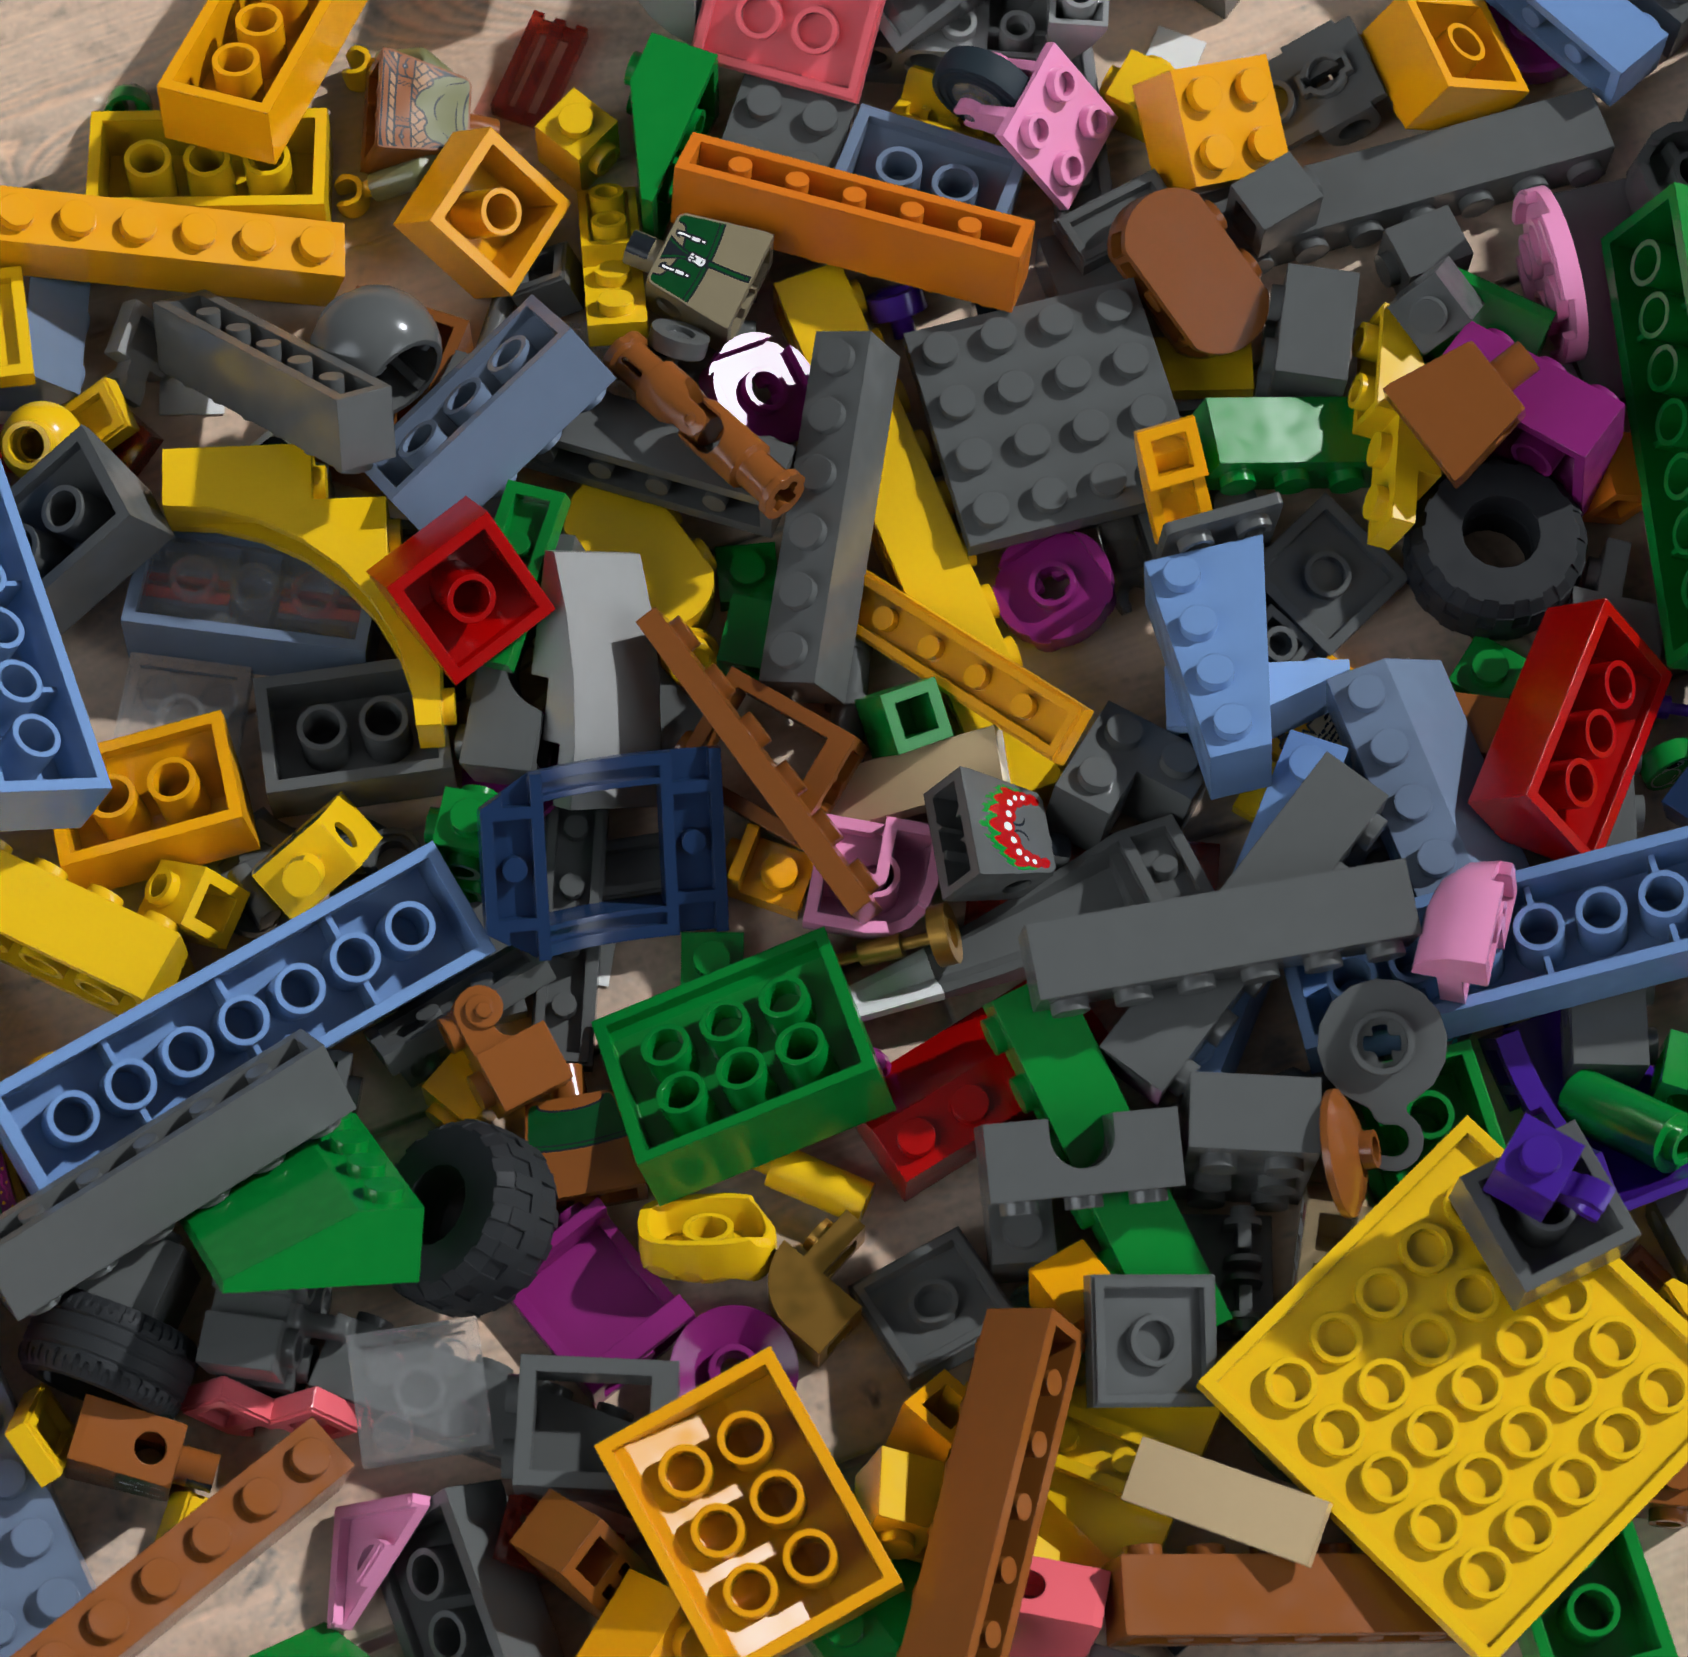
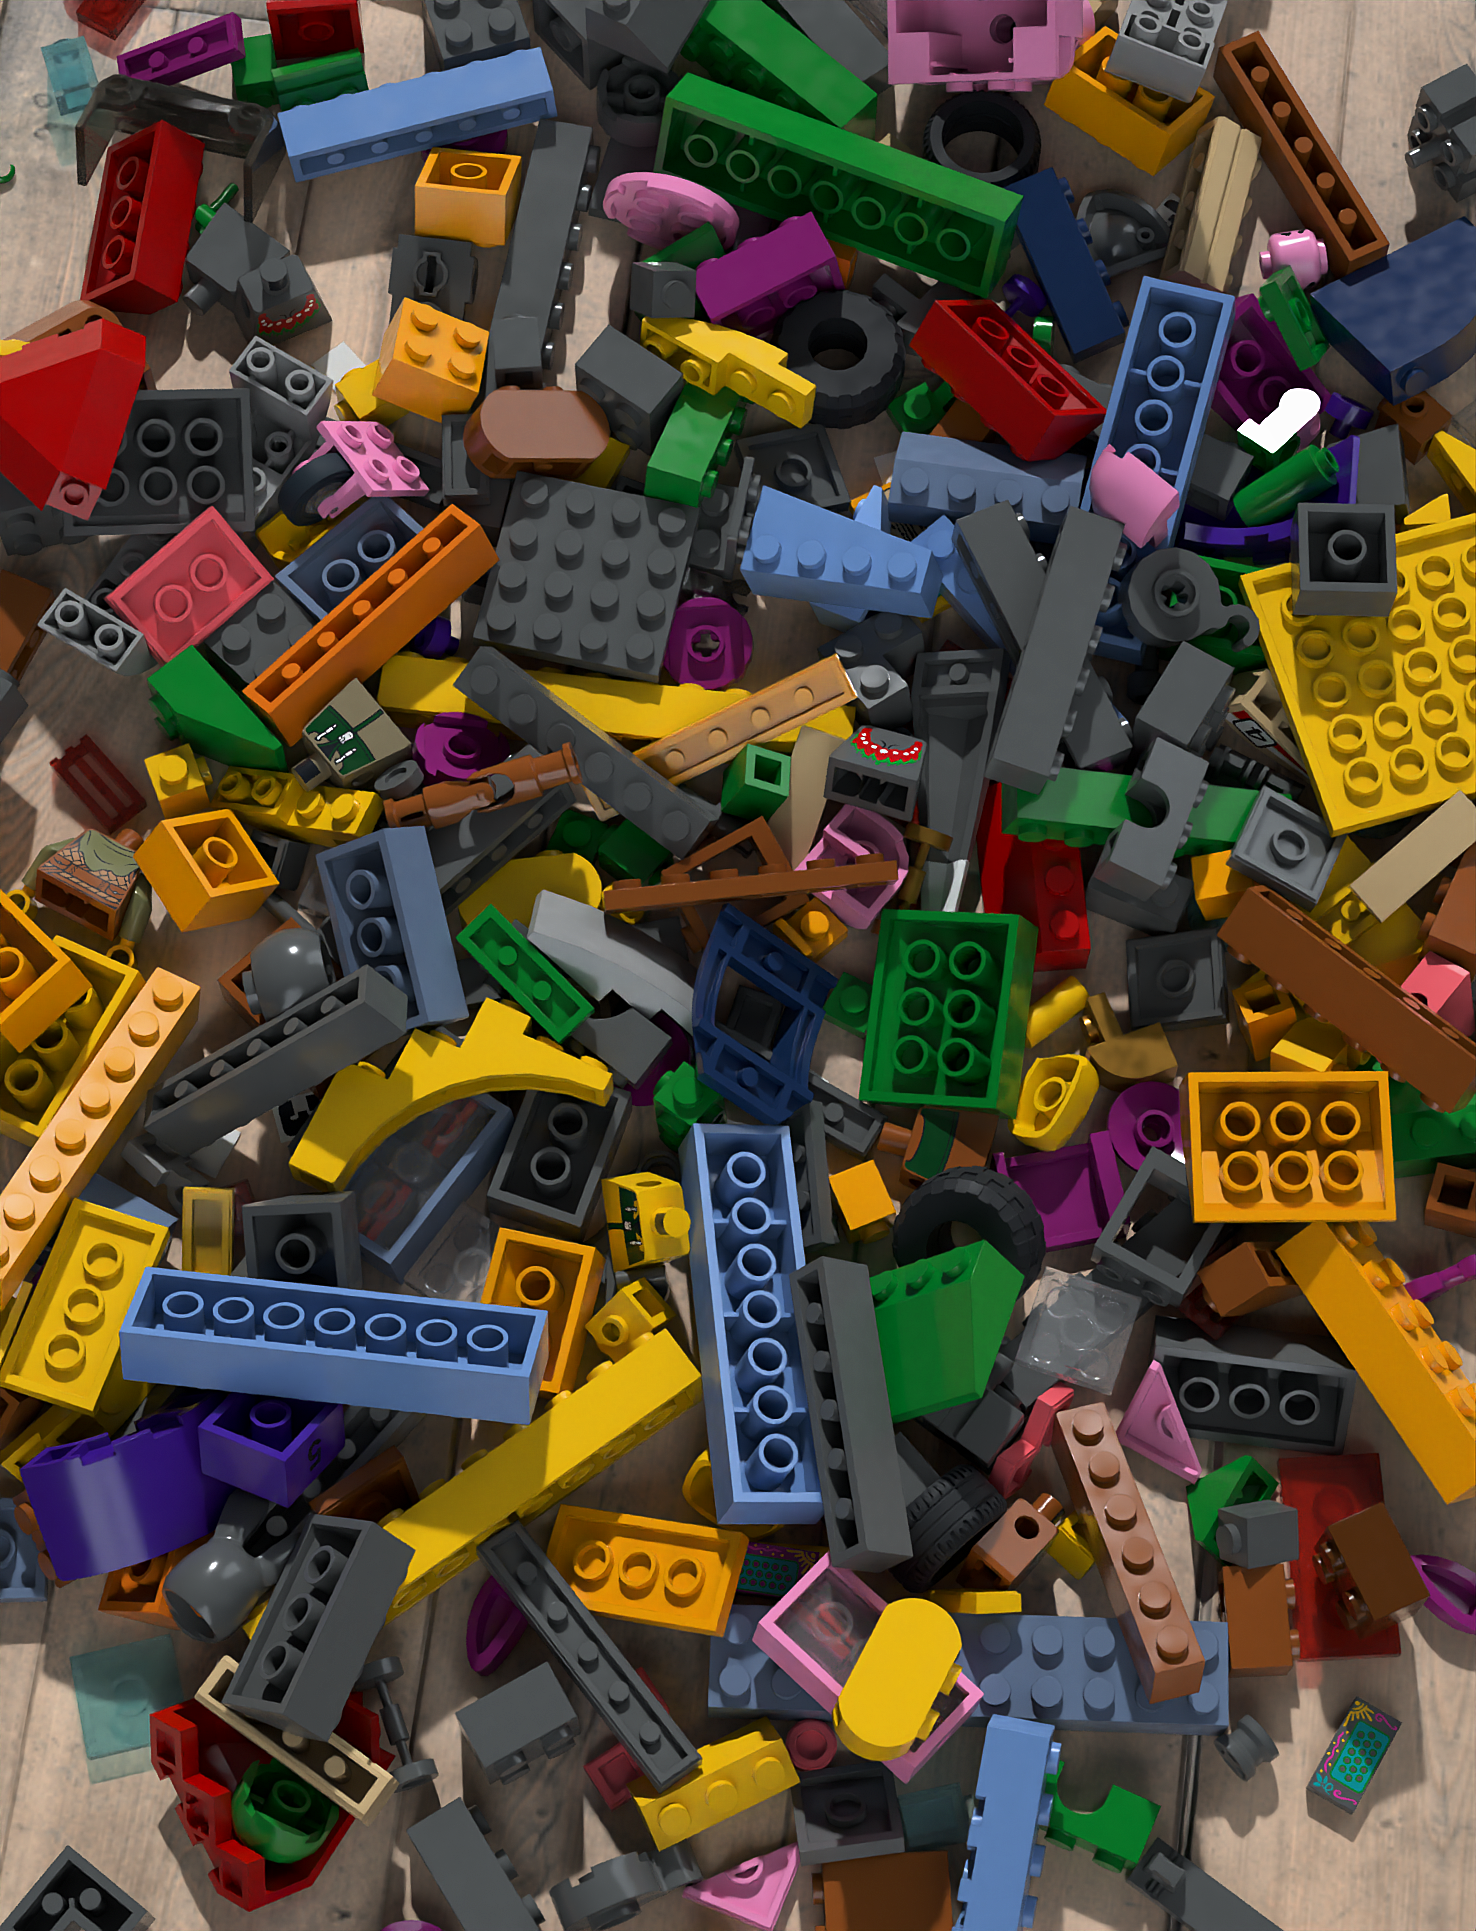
camera: 60 degrees left, 0 degrees up
(33, 433) = (213, 1250): yellow piece -> none
(461, 589) = (526, 1005): red slope -> none
(505, 1068) = (878, 1159): dark orange brick -> none
(1172, 471) = (690, 520): light orange slope -> none
(1346, 1152) = (1236, 653): dark orange dish -> none
(1418, 245) = (596, 289): dark grey brick -> none
(1463, 405) = (759, 307): dark orange torso -> none
(1539, 1170) = (1332, 535): dark purple brick -> none

